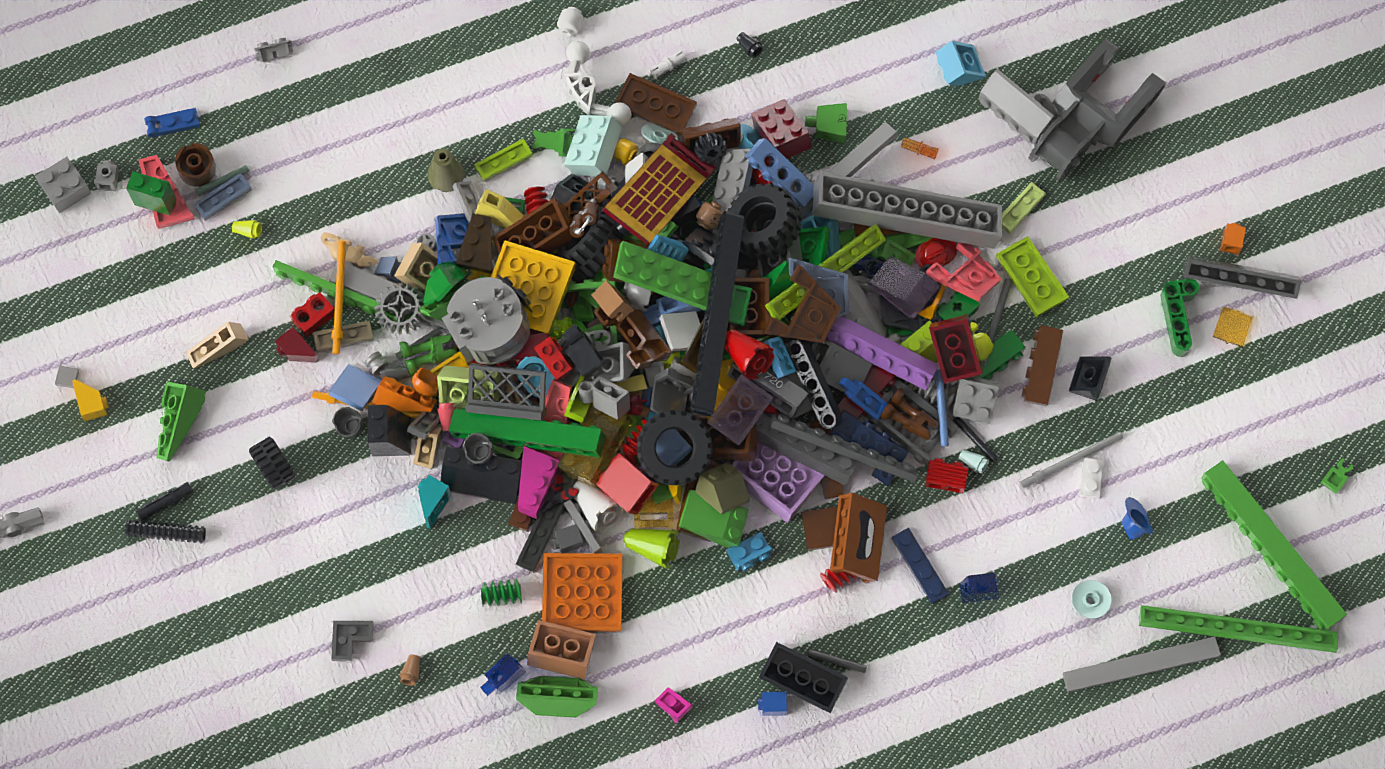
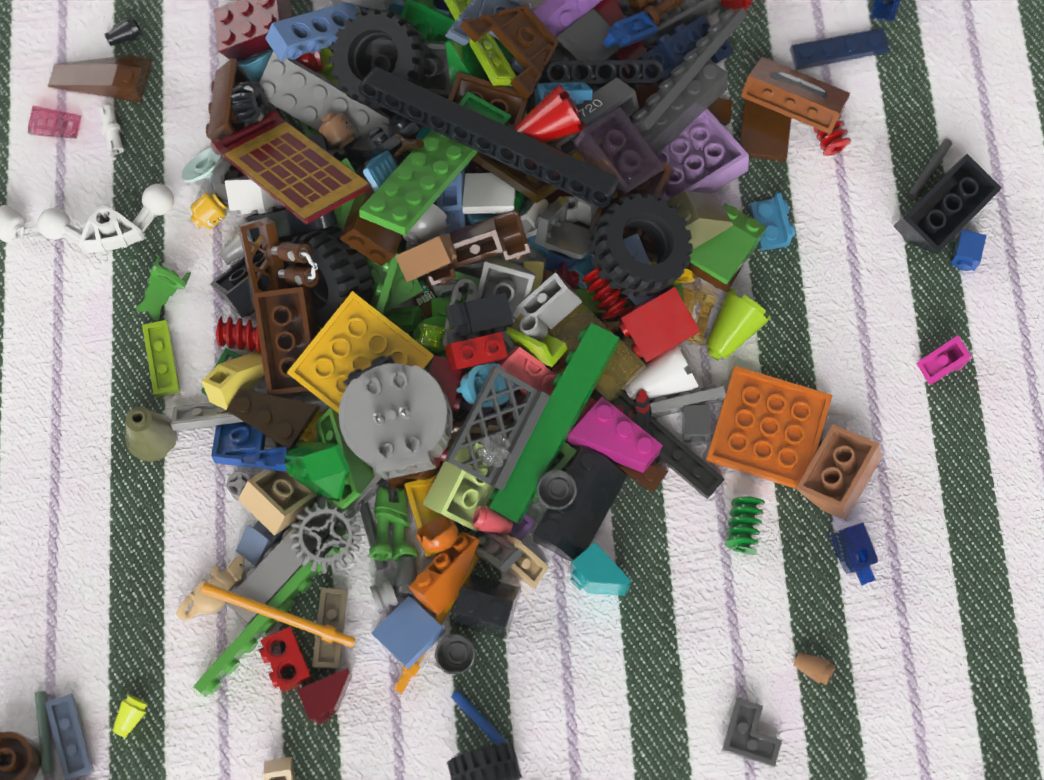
camera: 70 degrees left, 0 degrees up
(308, 456) = (478, 718): none -> blue bar
(489, 395) = (494, 450): none -> clear plant
(557, 696) = (898, 491): bright green wedge -> none
(593, 145) = (188, 241): light aqua brick -> none
(656, 104) = (158, 157): reddish brown plate -> none
(659, 10) = (53, 131): none -> clear pink slope
(695, 261) = (407, 145): none -> dark brown bar
(711, 47) = (107, 77): none -> reddish brown wedge

